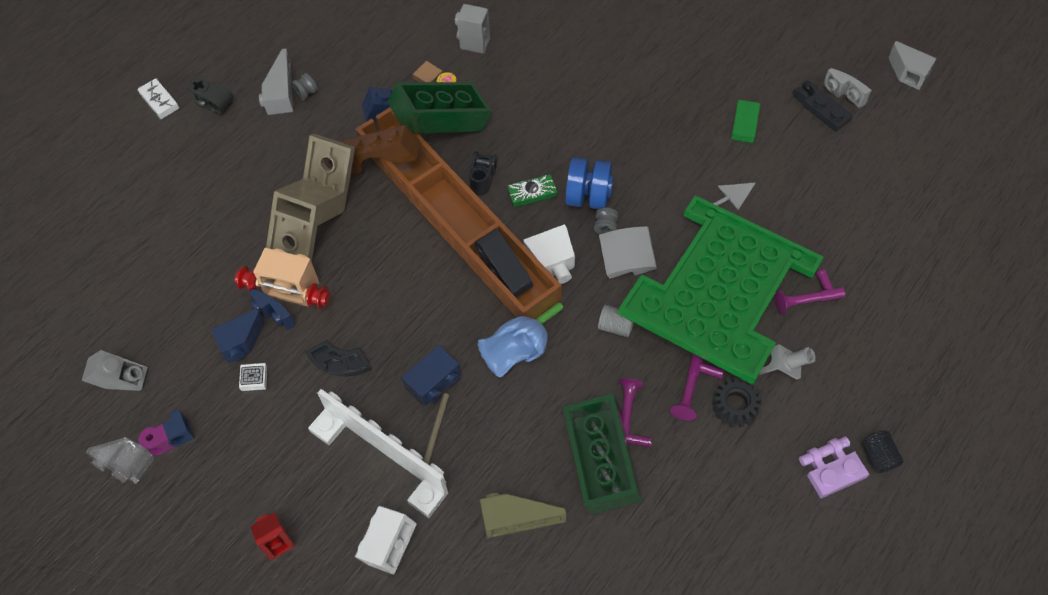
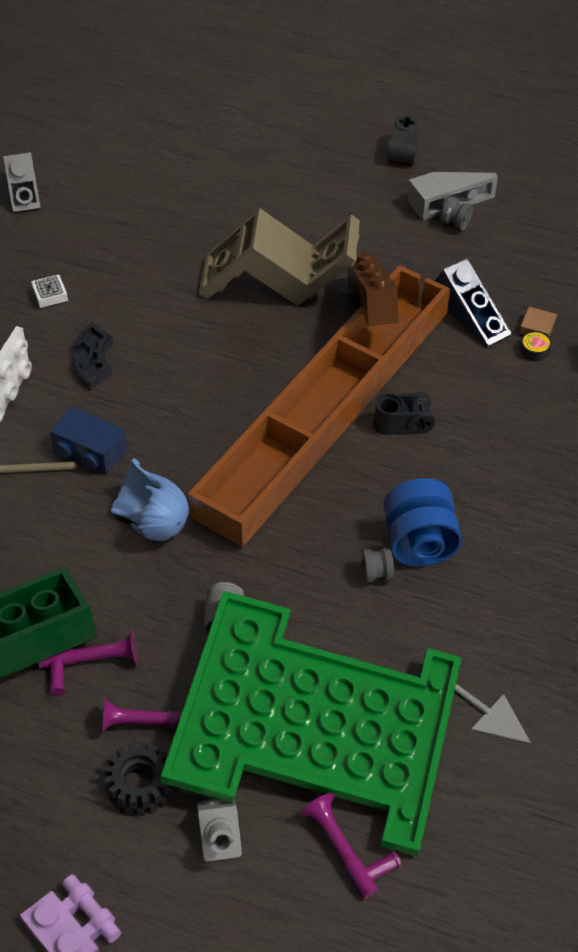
camera: 70 degrees right, 10 degrees down
(158, 98) = (384, 105): white tile -> none
(238, 335) = (93, 261): dark blue slope -> none
(271, 308) = (133, 283): dark blue slope -> none
(285, 278) = (171, 272): light nougat brick -> none
(439, 106) = (467, 332): dark green brick -> none
(503, 262) = (254, 458): black beam -> none
(532, 190) = (393, 467): tile -> none
(550, 313) = (214, 538): bright green piece -> none
(553, 252) = (304, 516): white torso -> none
(627, 251) = (340, 602): light grey slope -> none

